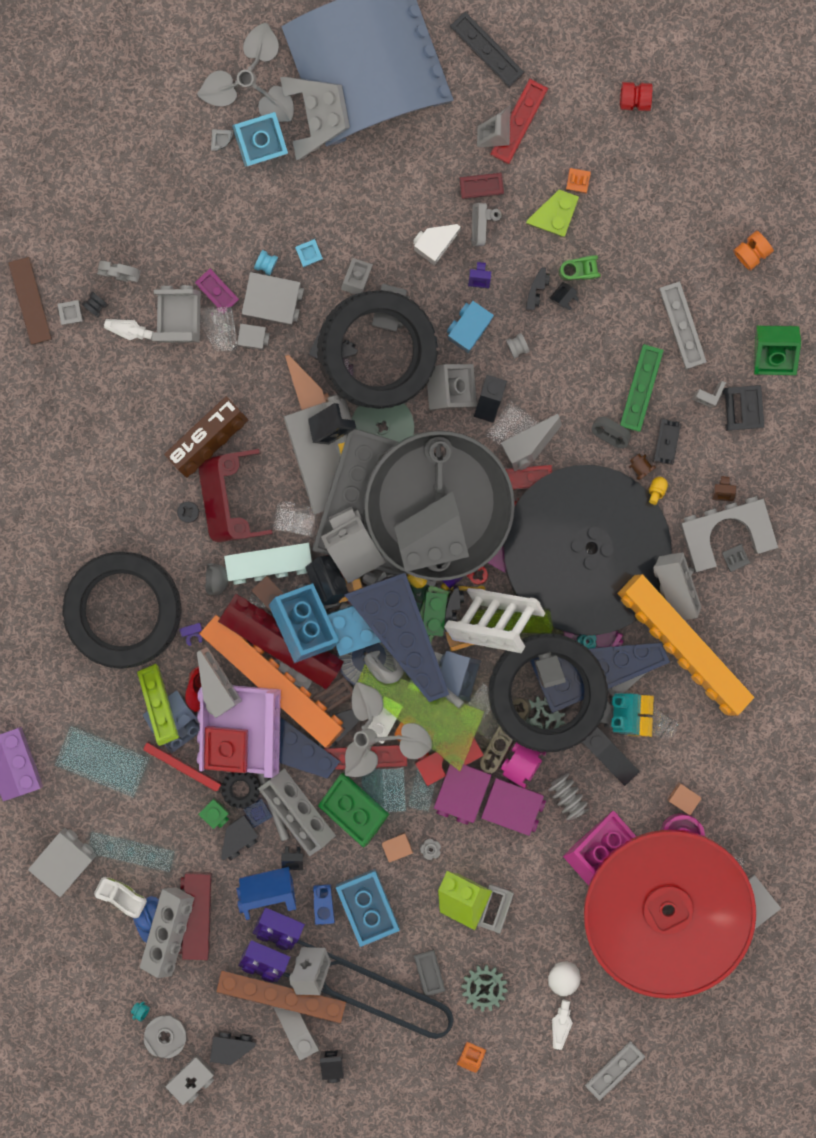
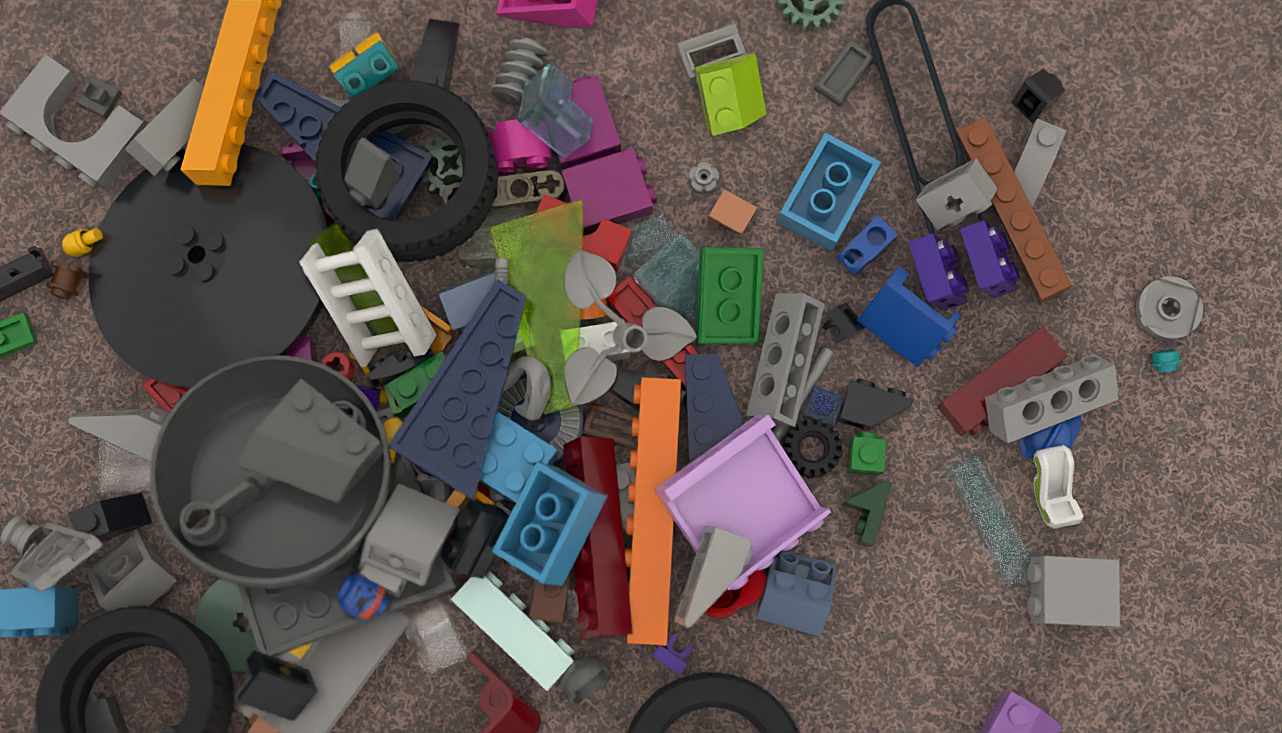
camera: 130 degrees left, 10 degrees down
(102, 761) = (915, 642): clear light blue tile -> none
(157, 704) = (793, 626): lime tile -> none
(182, 766) = (842, 538): red tile -> none
(187, 797) = (873, 503): none -> dark green slope
(195, 1068) = (1176, 245): light grey brick -> none
(226, 749) = (779, 500): red tile -> none
(228, 1048) = (1117, 221): black slope -> none
(341, 500) = (361, 597): none -> blue head
(486, 360) = (54, 556): none -> light grey wing
(524, 793) = (551, 114): none -> clear light blue panel
(611, 432) = (52, 345): dark grey beam -> none
(723, 490) = (25, 165): reddish brown tile -> none

